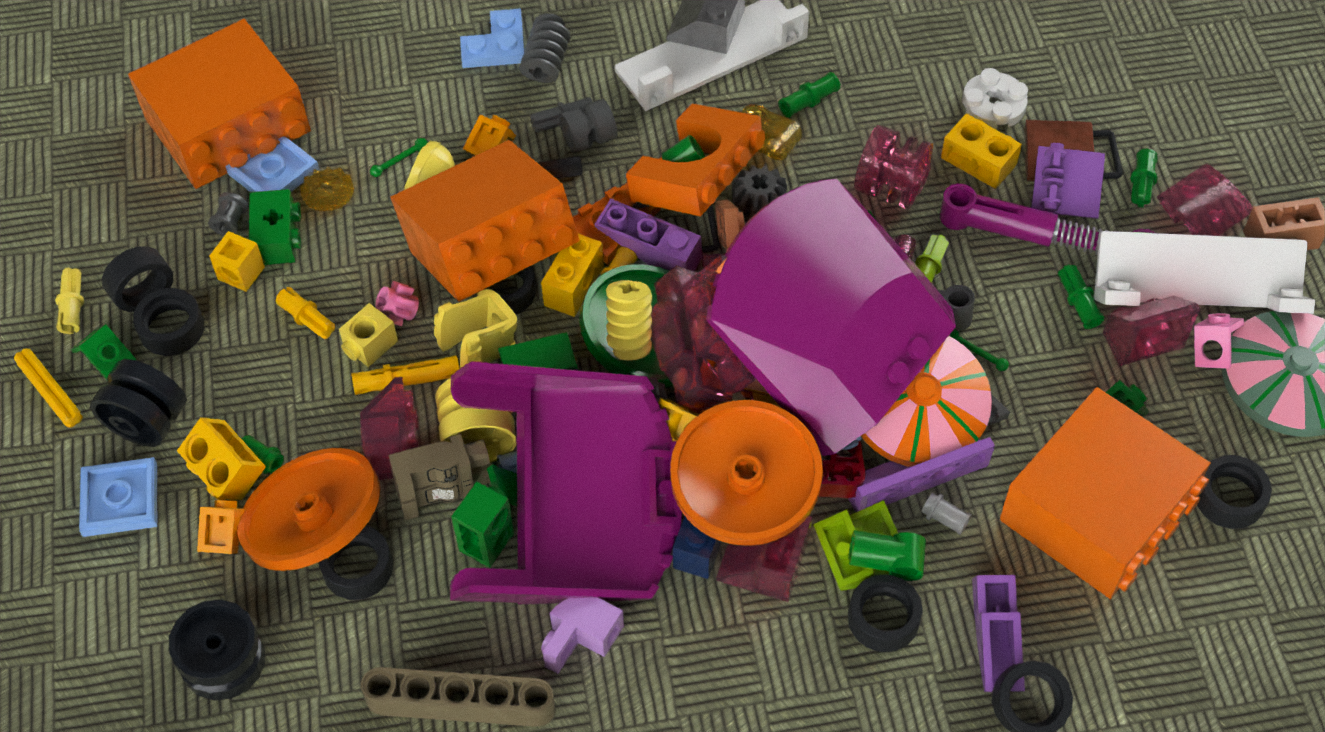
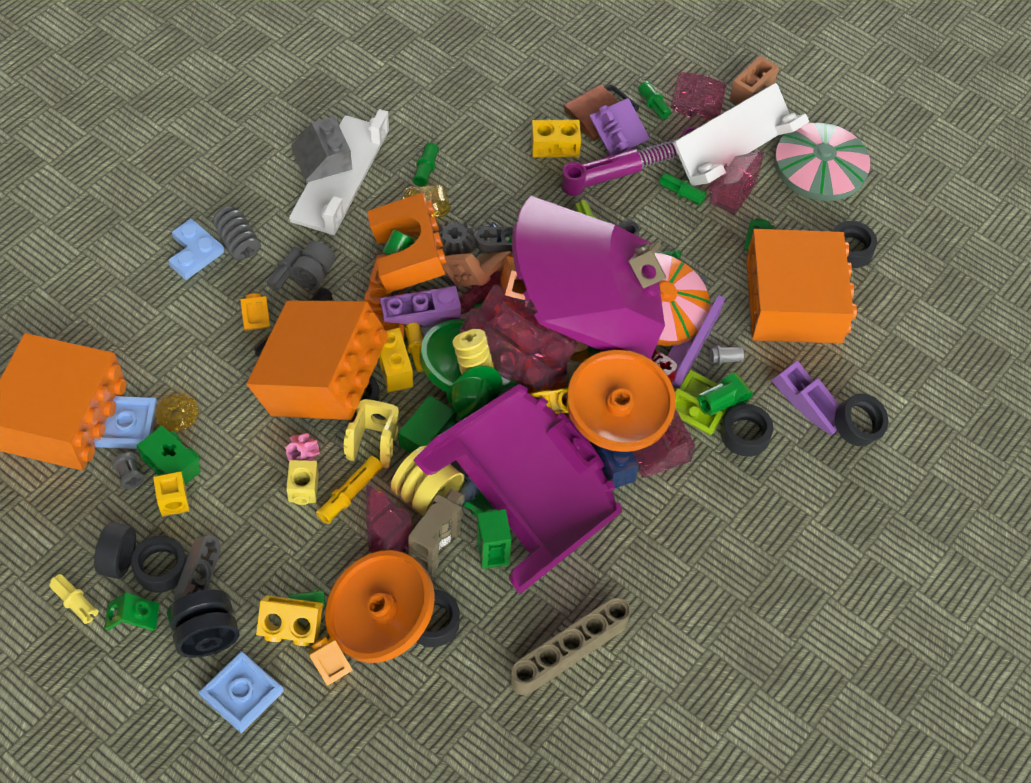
camera: 45 degrees left, 0 degrees up
(48, 388) = (117, 662): yellow axle -> none
(209, 333) = (209, 555): none -> dark grey beam
(217, 649) = (407, 728): black wheel -> none
(305, 312) = (245, 496): yellow axle -> none
(376, 170) = (209, 346): green hinge -> none
(429, 162) = (239, 355): light yellow hat -> none
(580, 621) = (599, 553): lavender brick -> none
(607, 351) = (474, 390): none -> green piece
(898, 168) = (527, 175): clear pink wheel -> none
(907, 331) = (646, 255): none -> dark tan bracket
(1000, 86) = (526, 94): white plate -> none
(1216, 328) = (772, 160): bright pink bracket -> none

